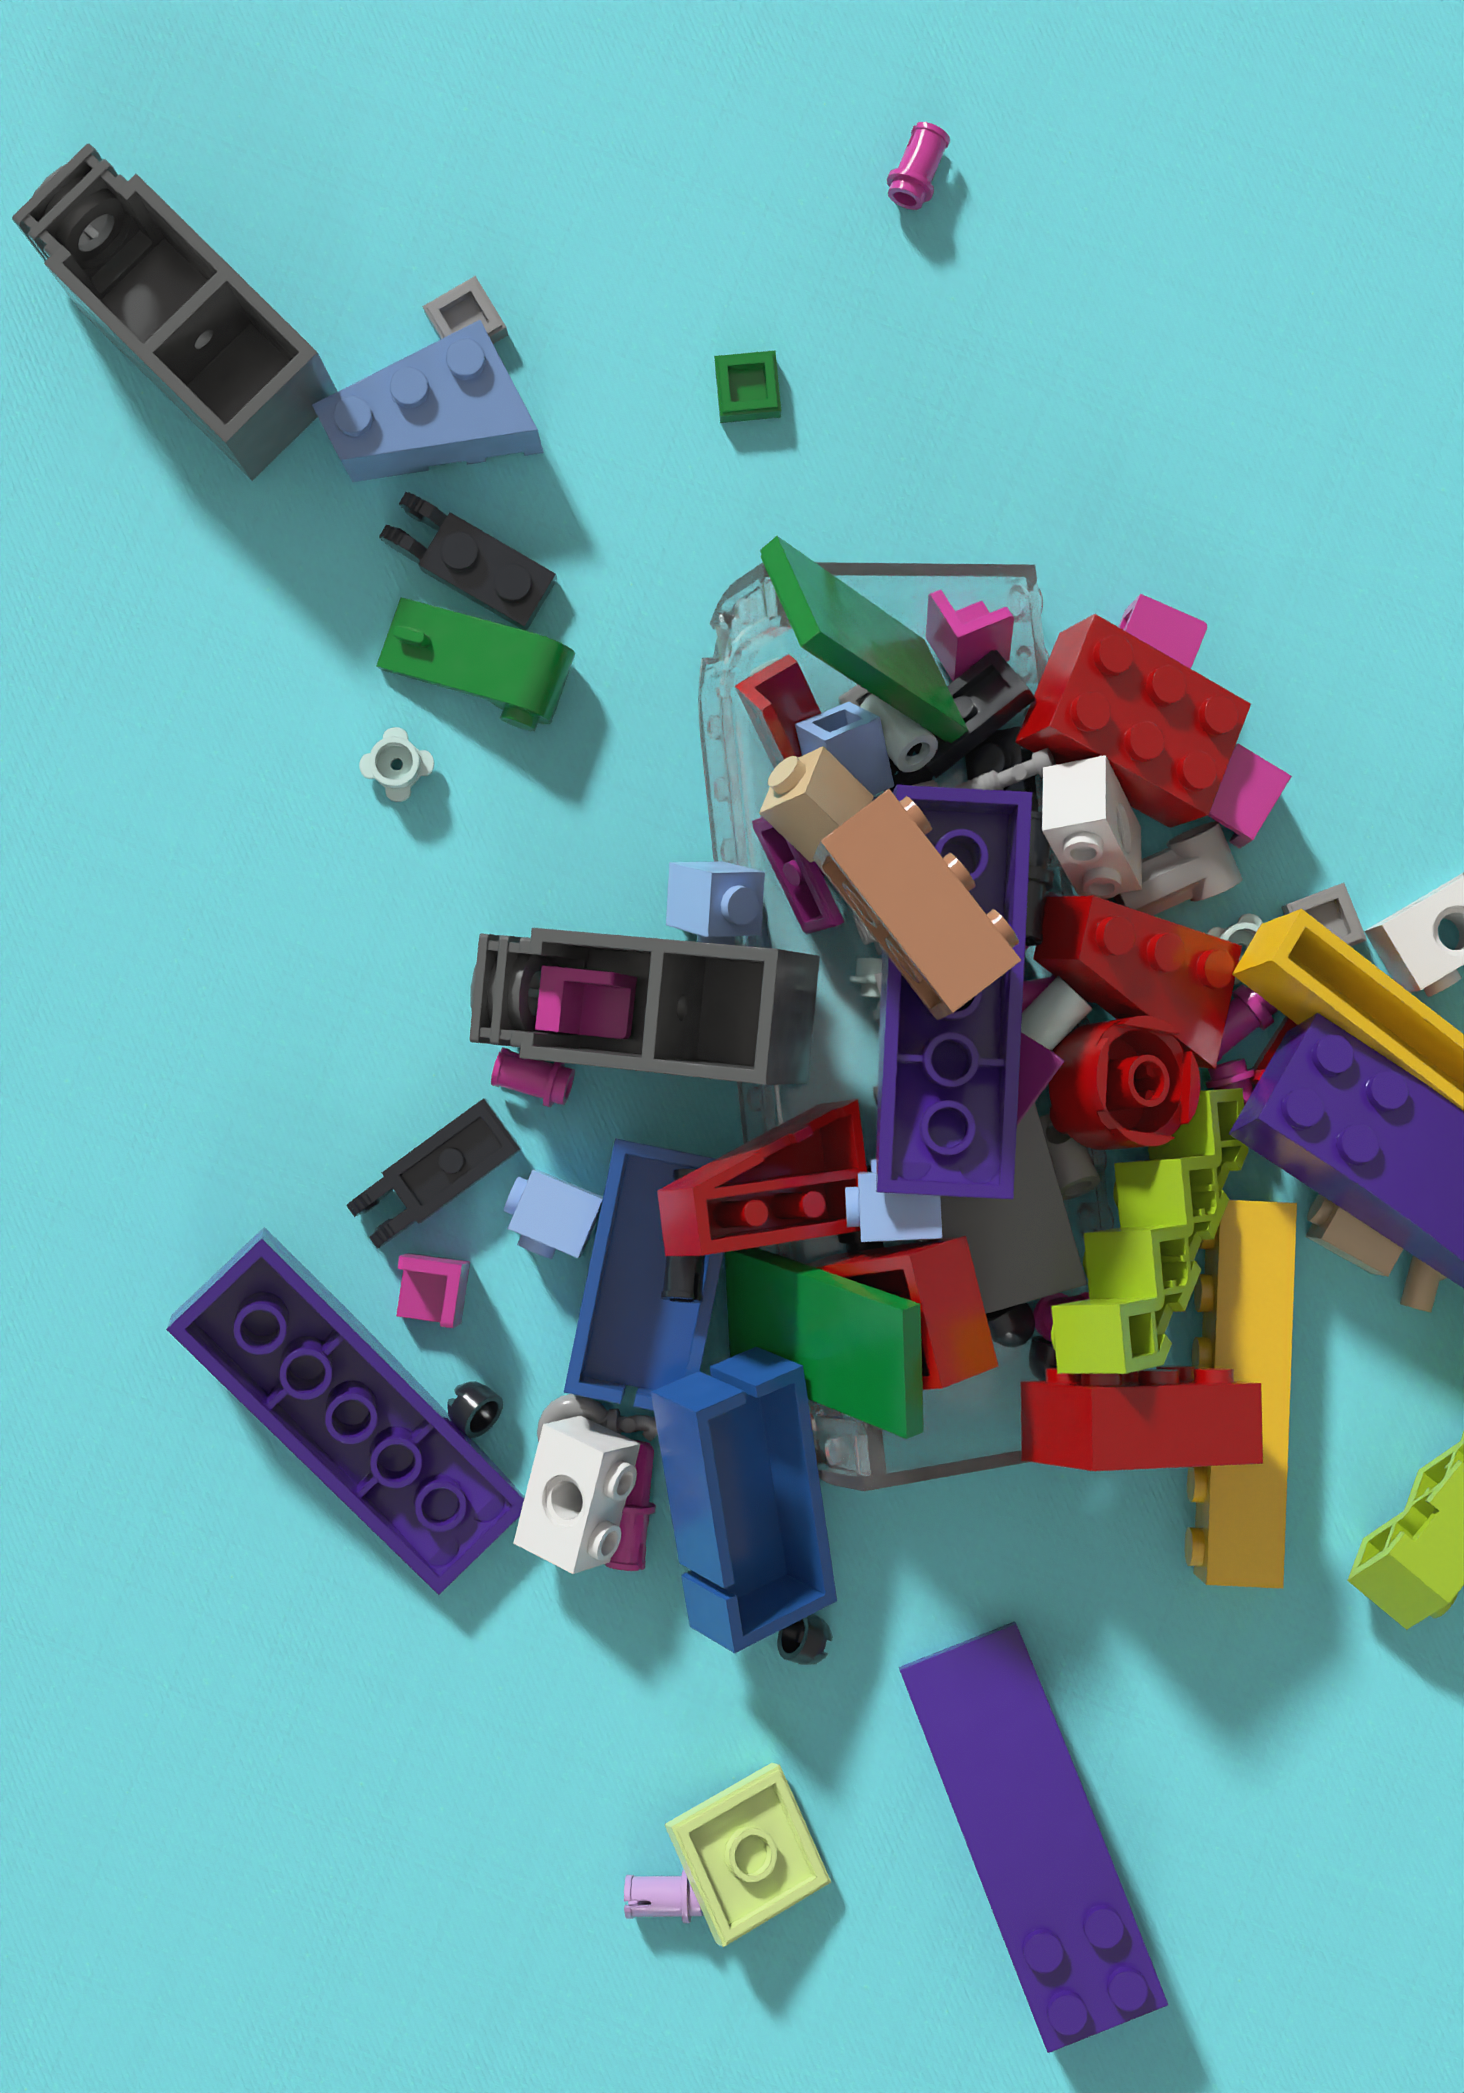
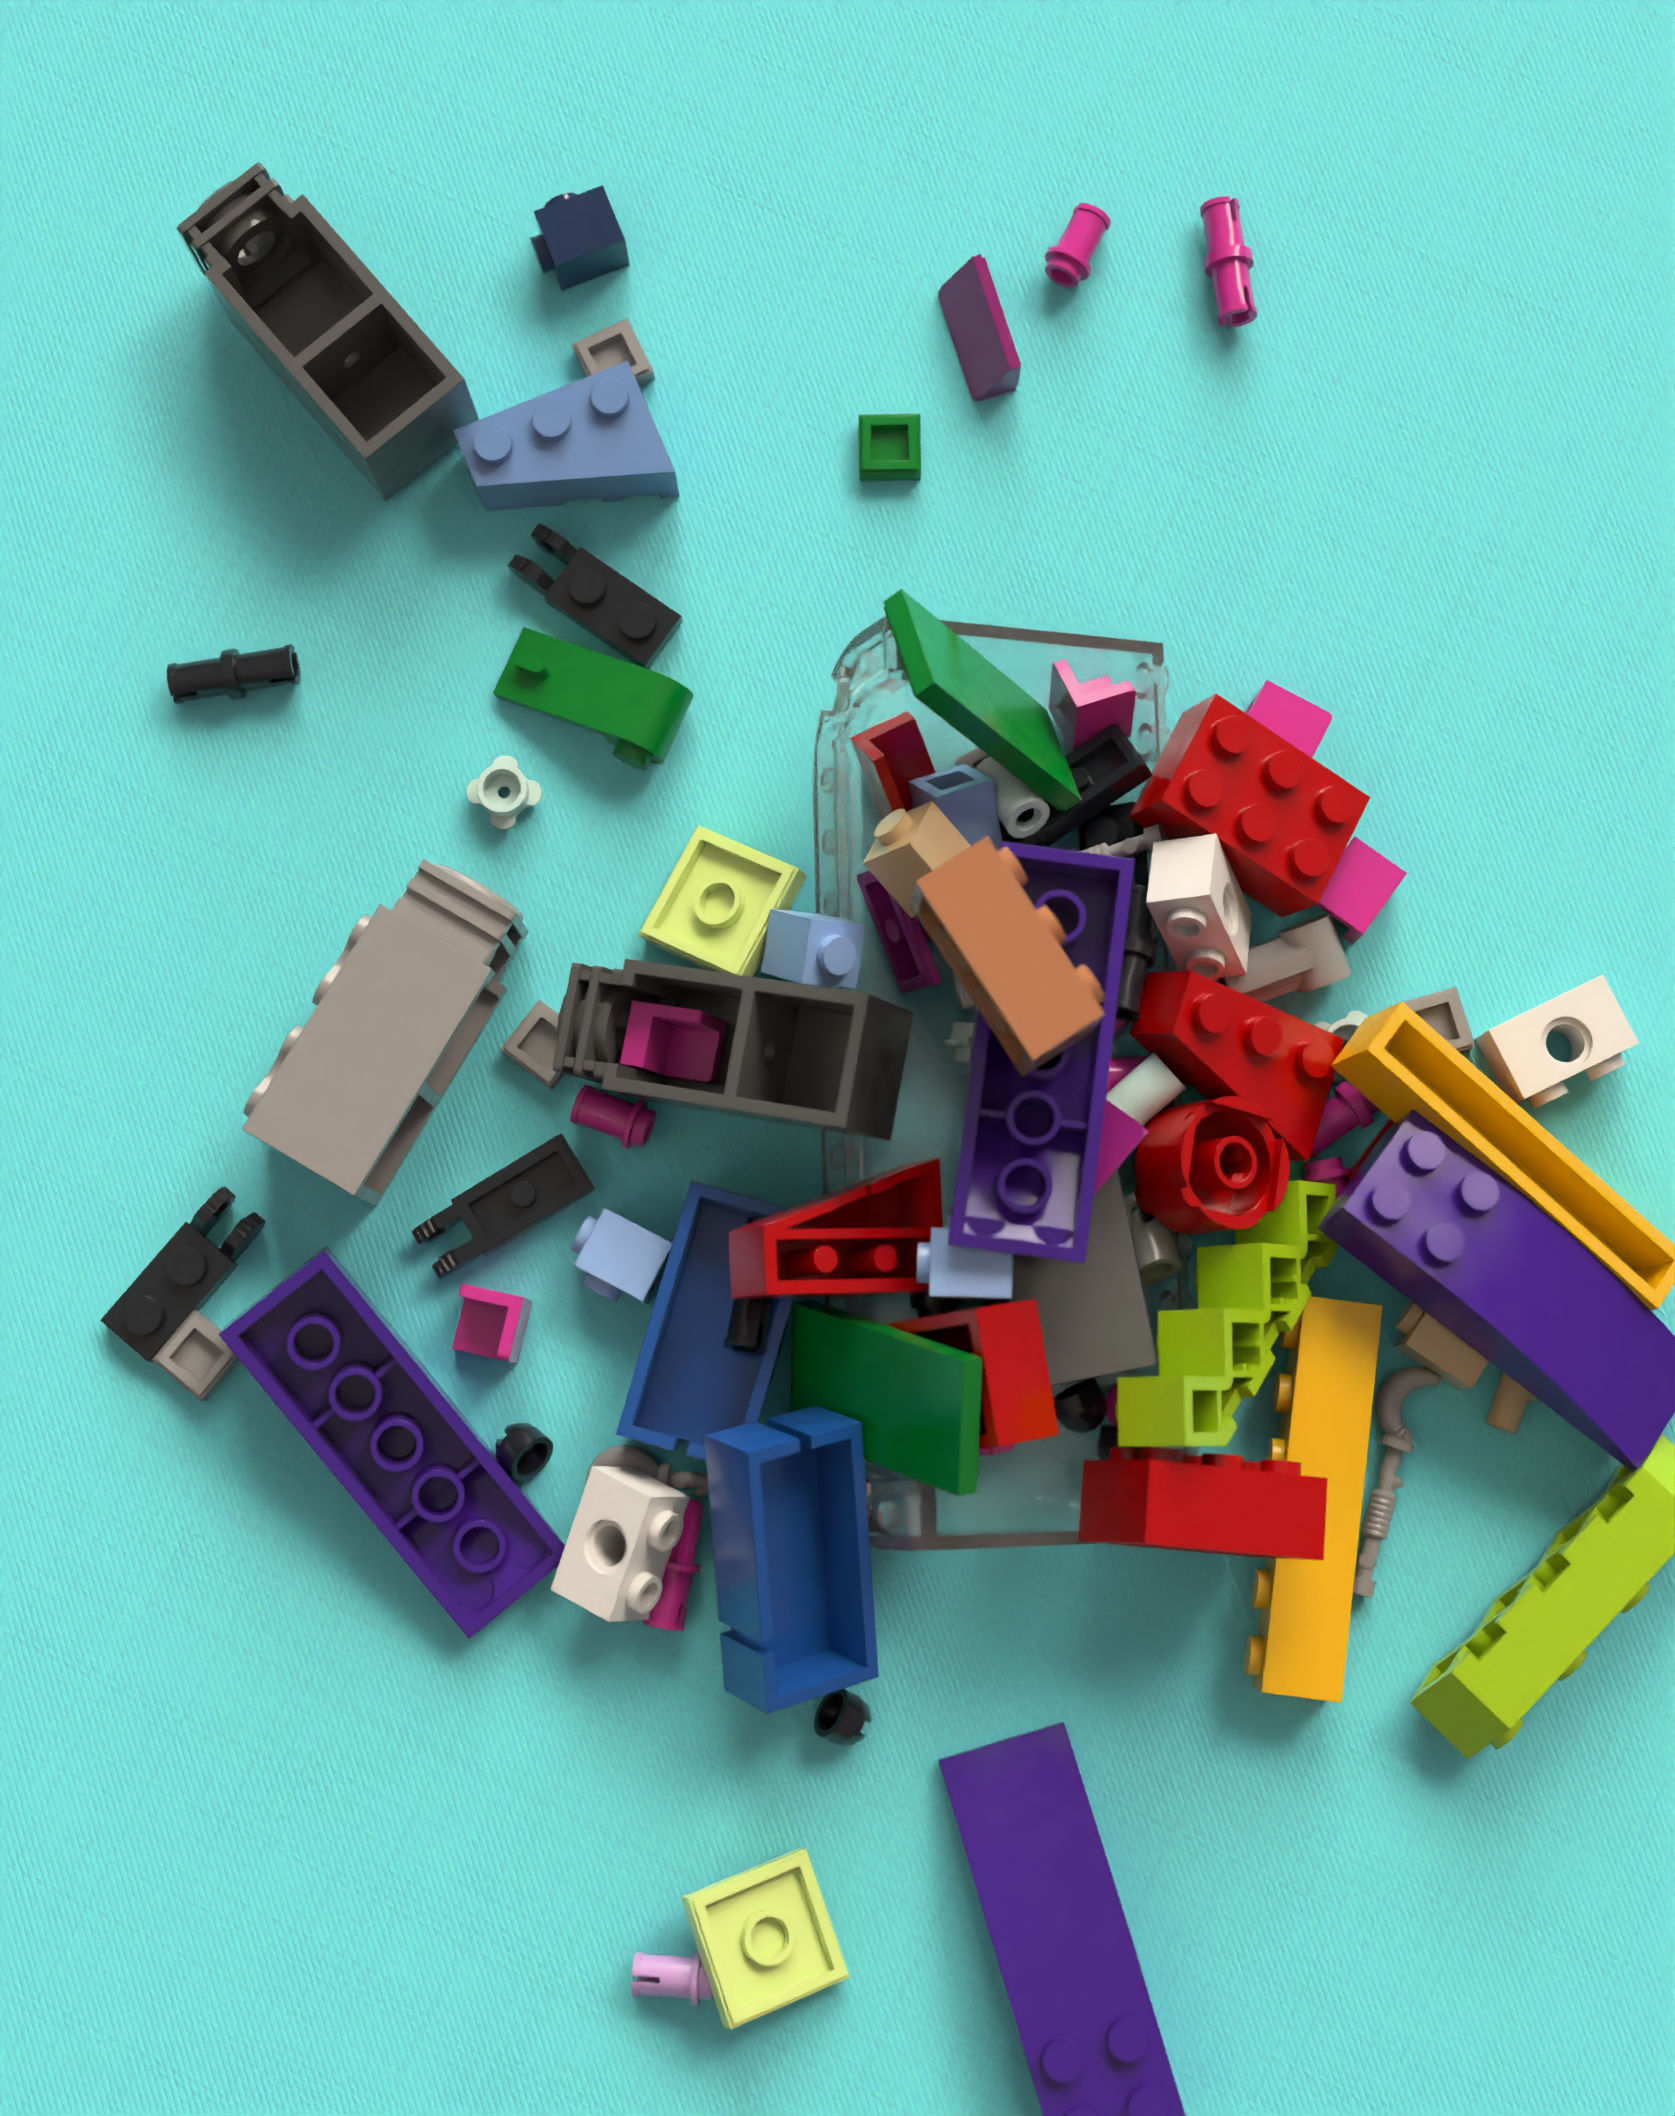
camera: 10 degrees right, 5 degrees down
(117, 667) = (233, 674): none -> black pin
(125, 1270) = (180, 1277): none -> black hinge
(146, 1344) = (197, 1356): none -> light grey tile
(303, 1015) = (388, 1031): none -> light grey piece
(420, 196) = (579, 238): none -> dark blue brick
(450, 1011) = (535, 1044): none -> light grey tile
(620, 859) = (720, 904): none -> yellowish green plate
(828, 261) = (980, 331): none -> magenta slope
(1069, 171) = (1228, 262): none -> dark pink pin
(1317, 1327) = (1398, 1440): none -> light grey piece

